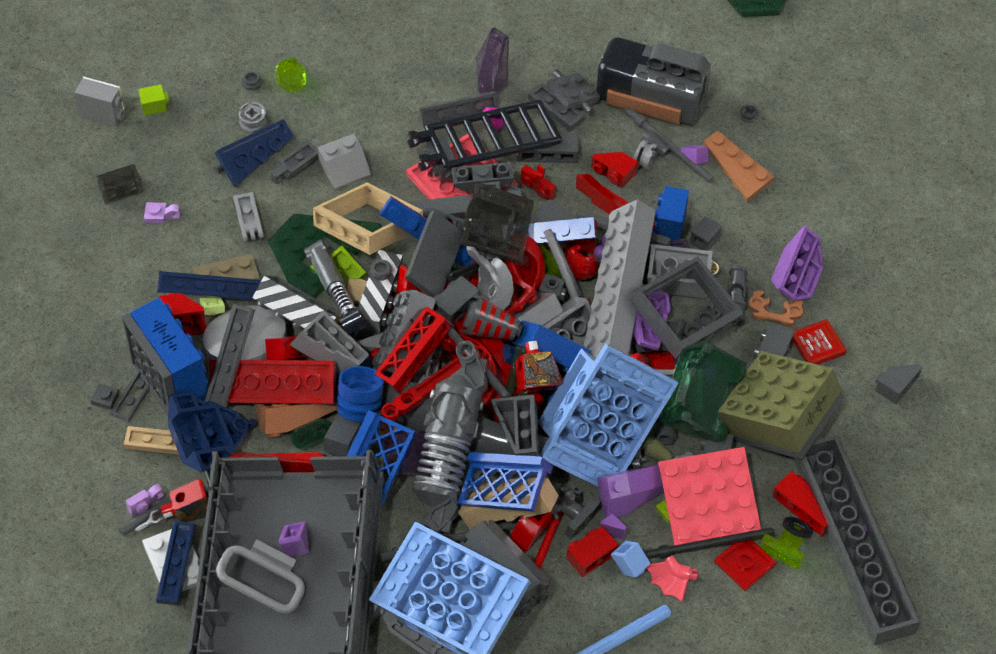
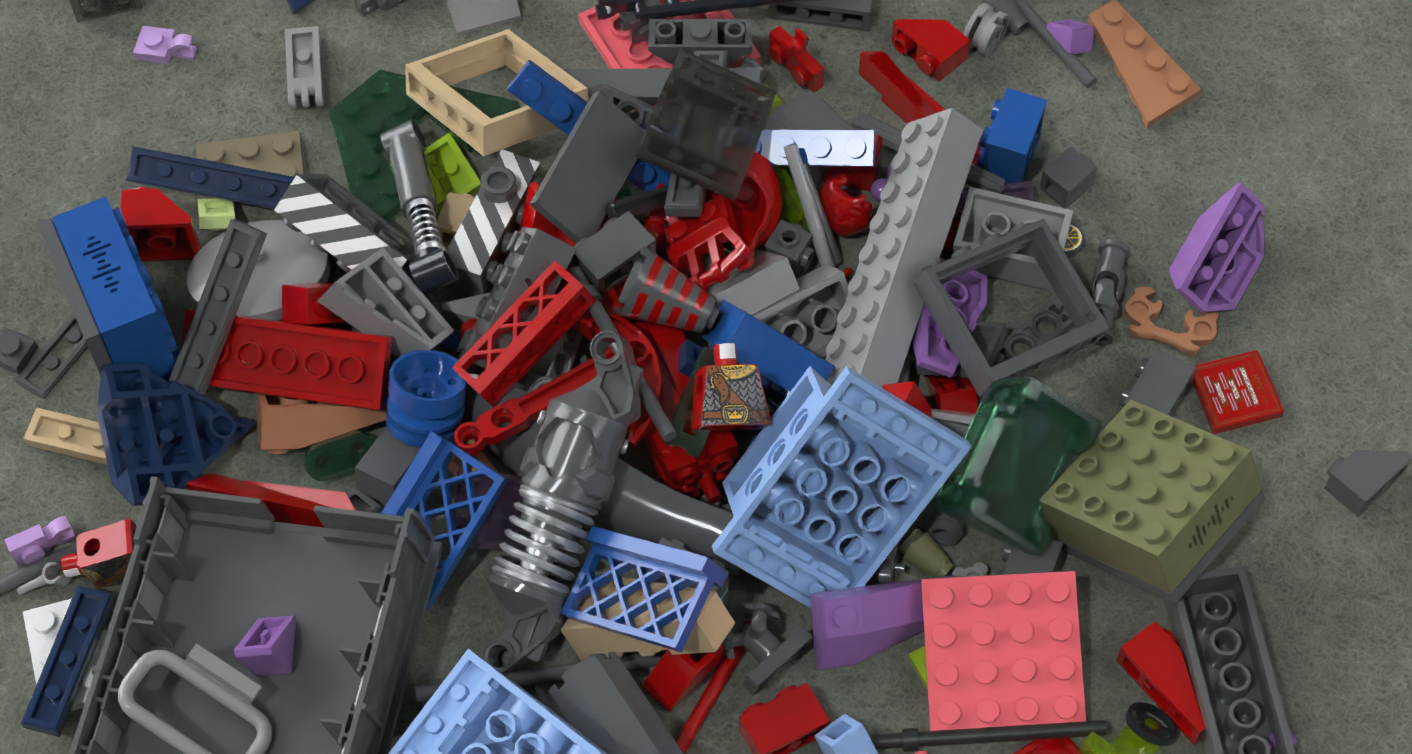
camera: 10 degrees right, 5 degrees up
(494, 279) = (682, 227): light grey hat -> none
(519, 423) = (685, 490): dark grey wedge -> none
(614, 527) = (828, 685): medium lavender slope -> none

